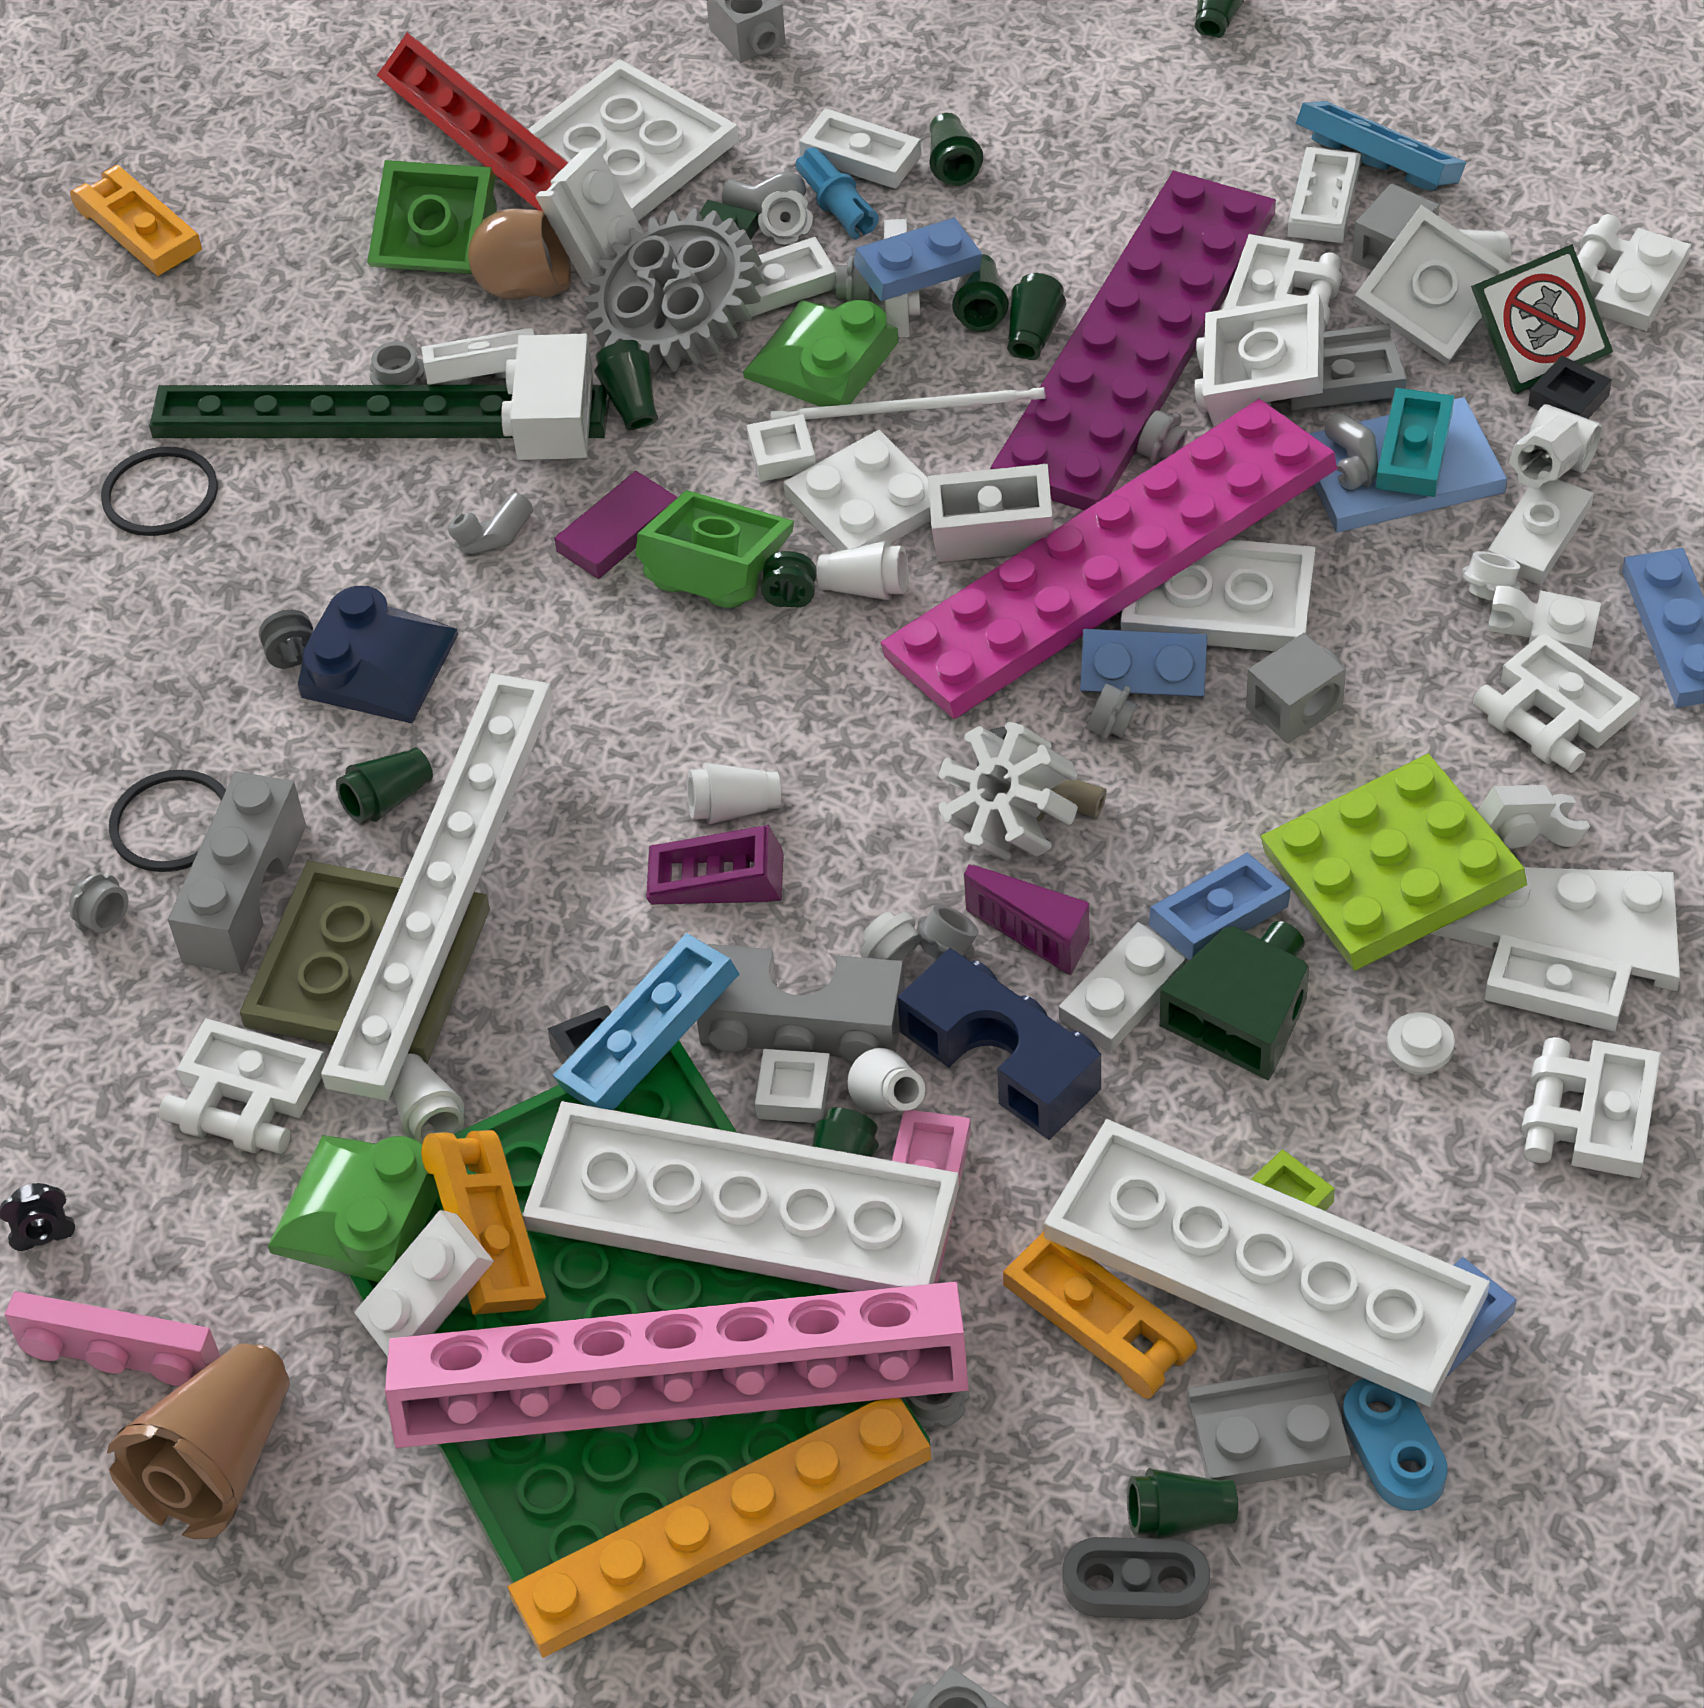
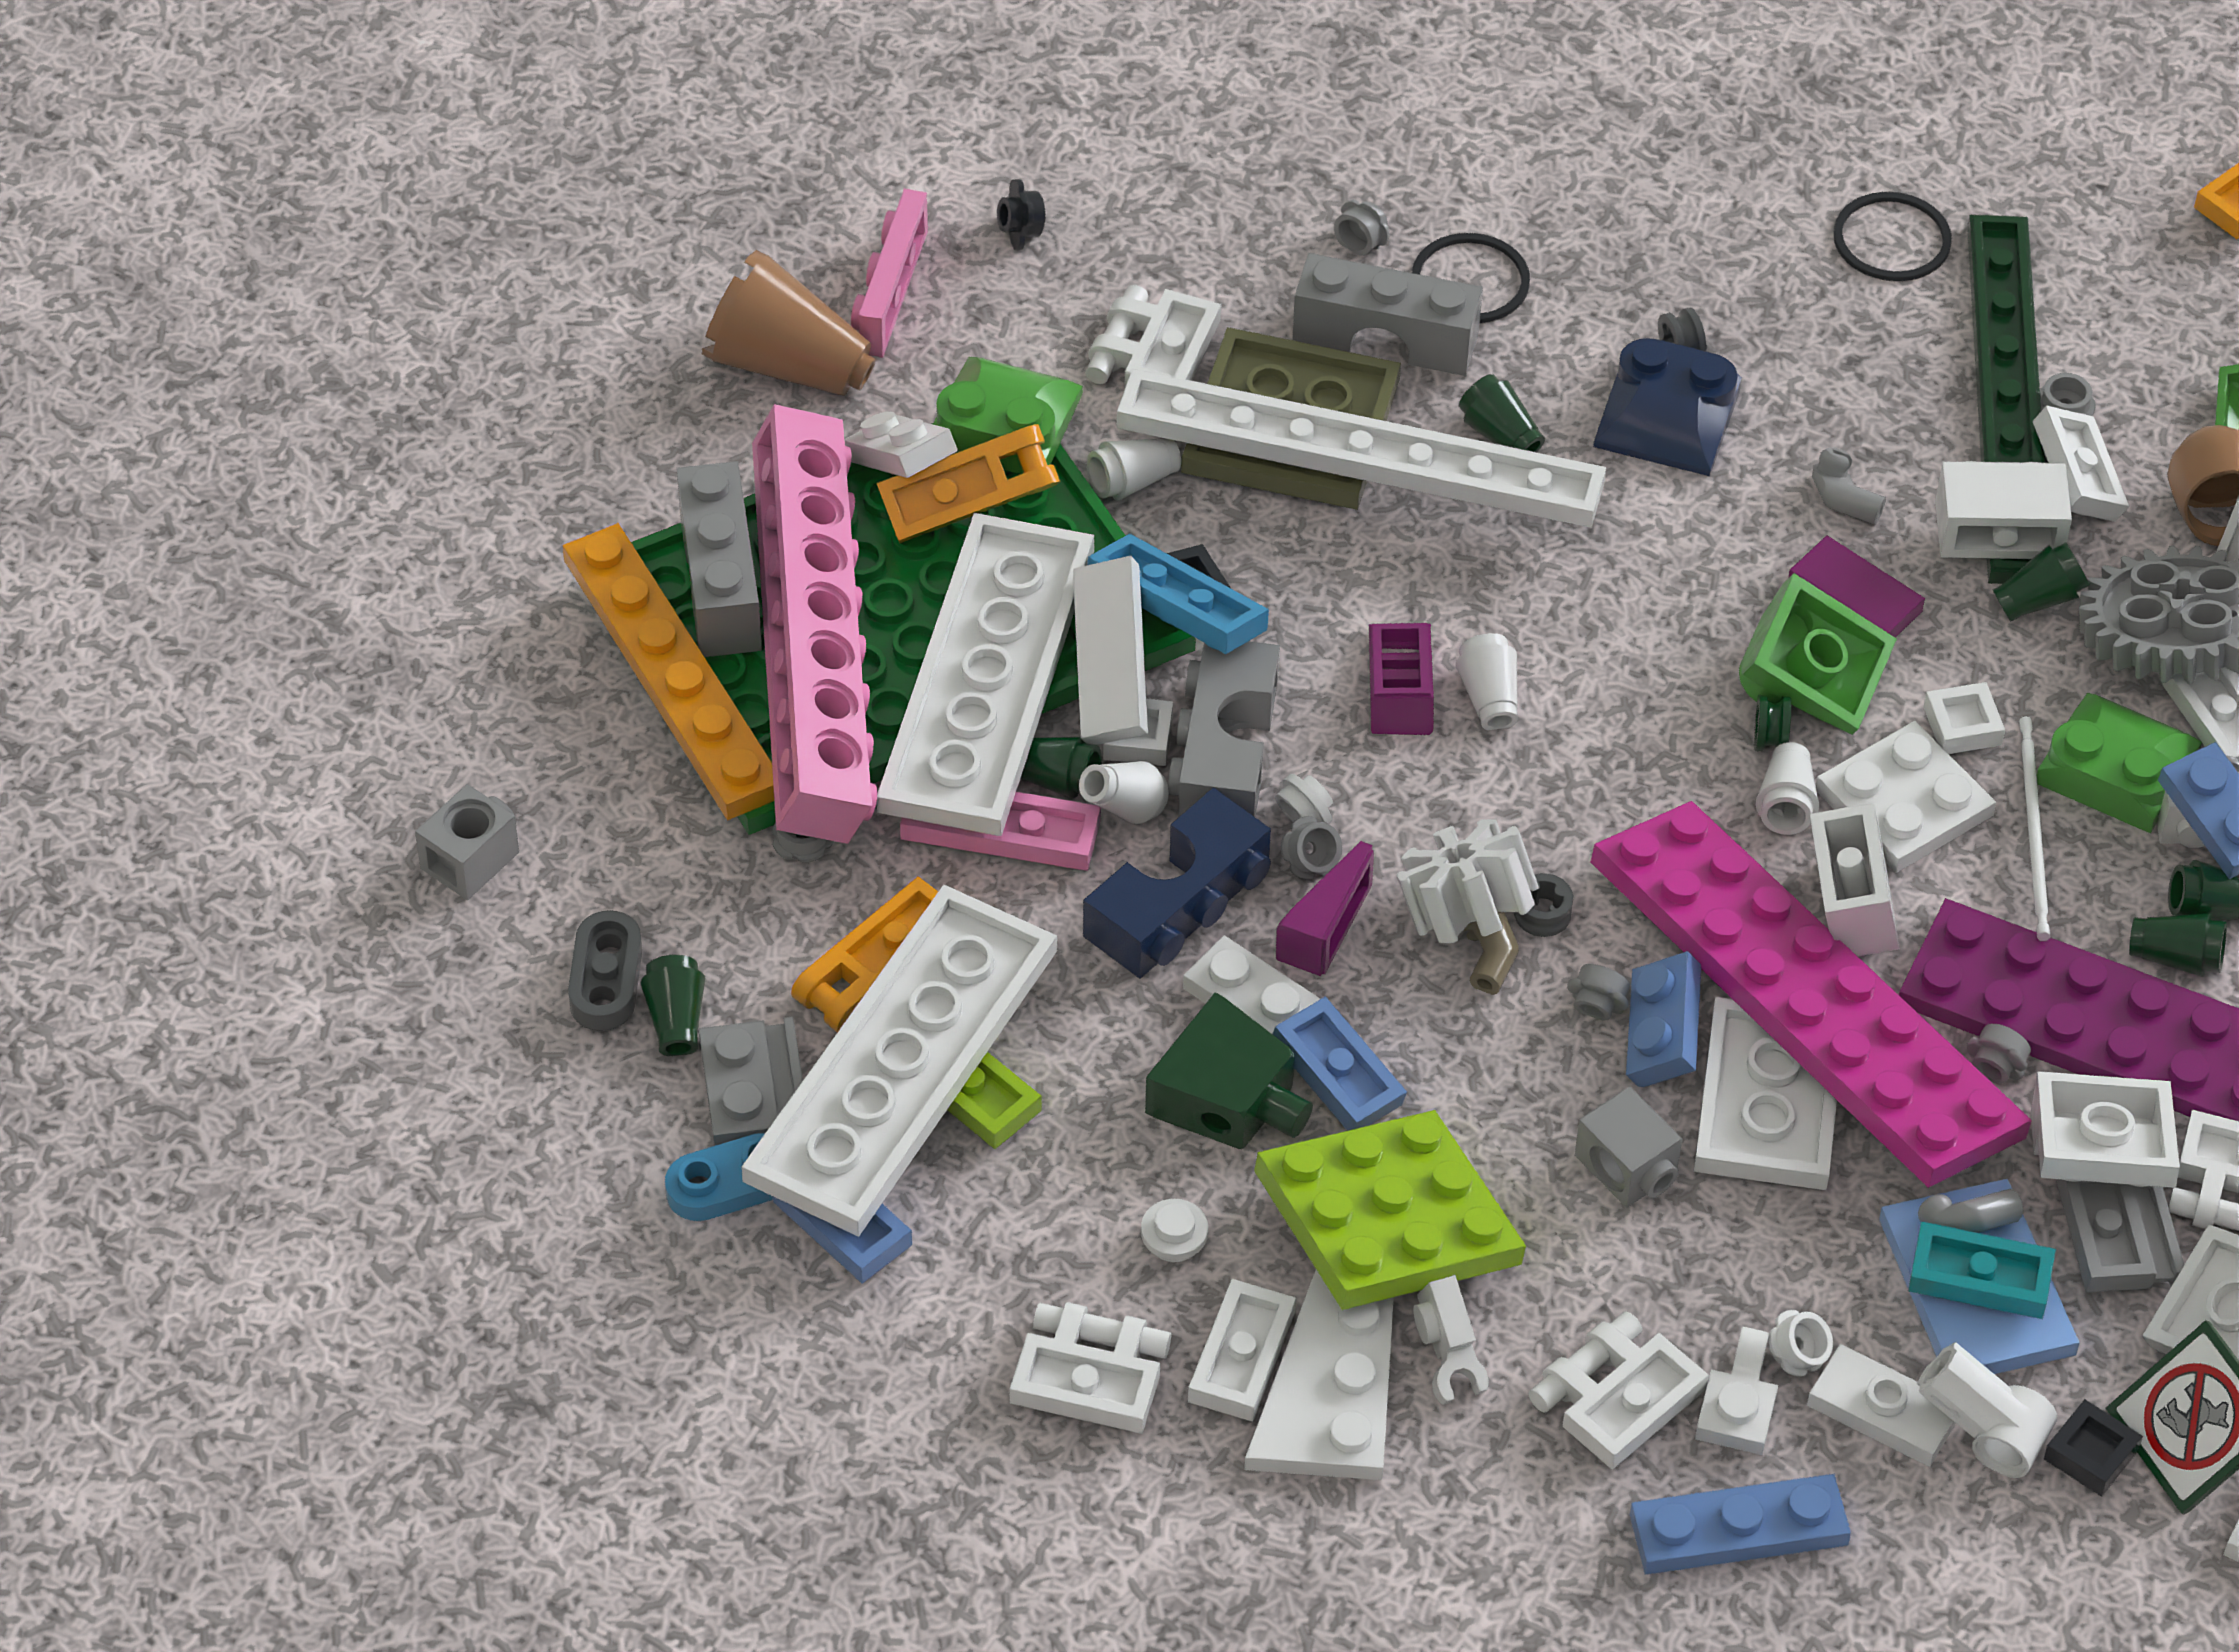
camera: 85 degrees right, 0 degrees up
(529, 1465) = (719, 559): none -> light grey arch
(724, 1081) = (1110, 651): none -> white tile

